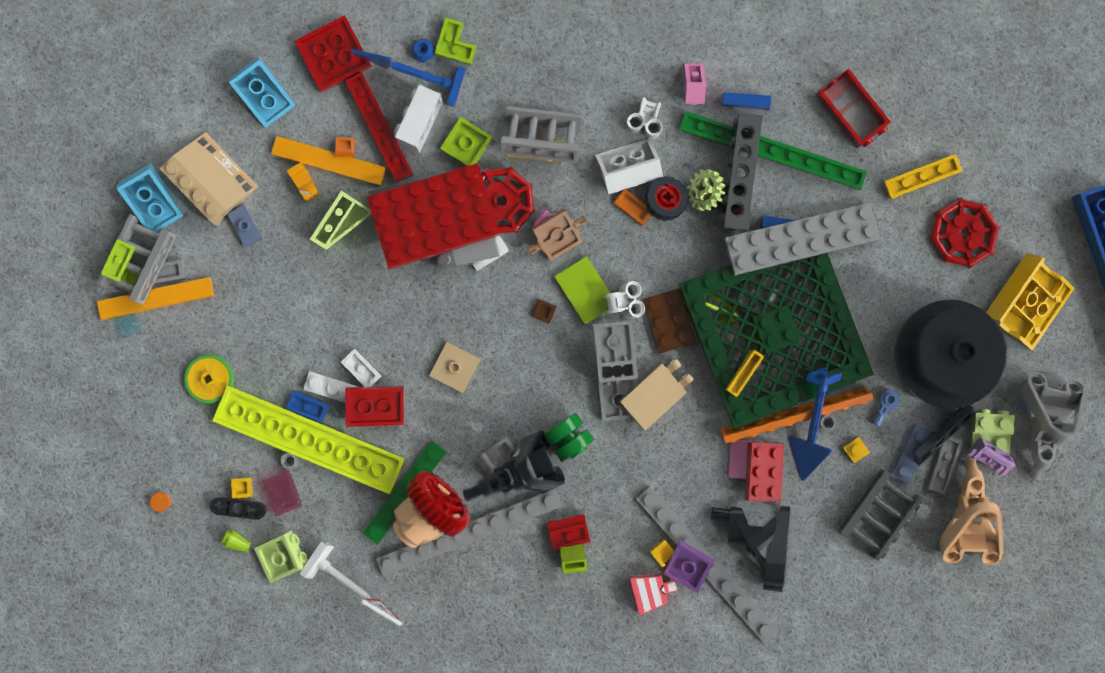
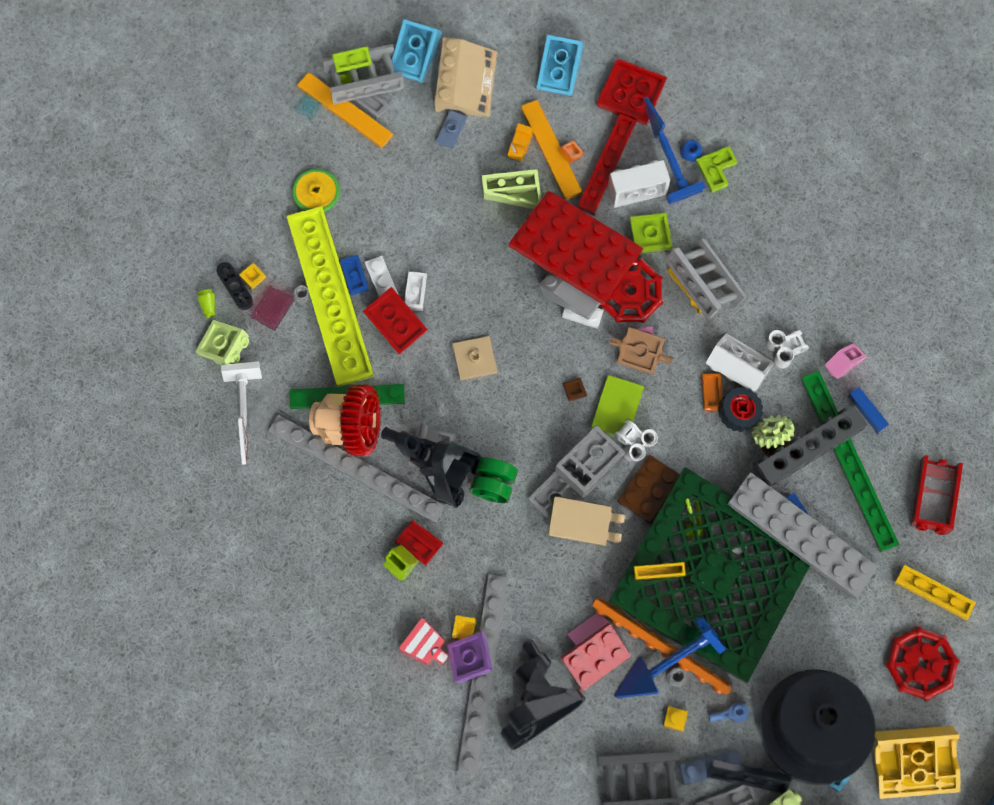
camera: 50 degrees right, 15 degrees down
(160, 501) = (194, 228): orange tile -> none

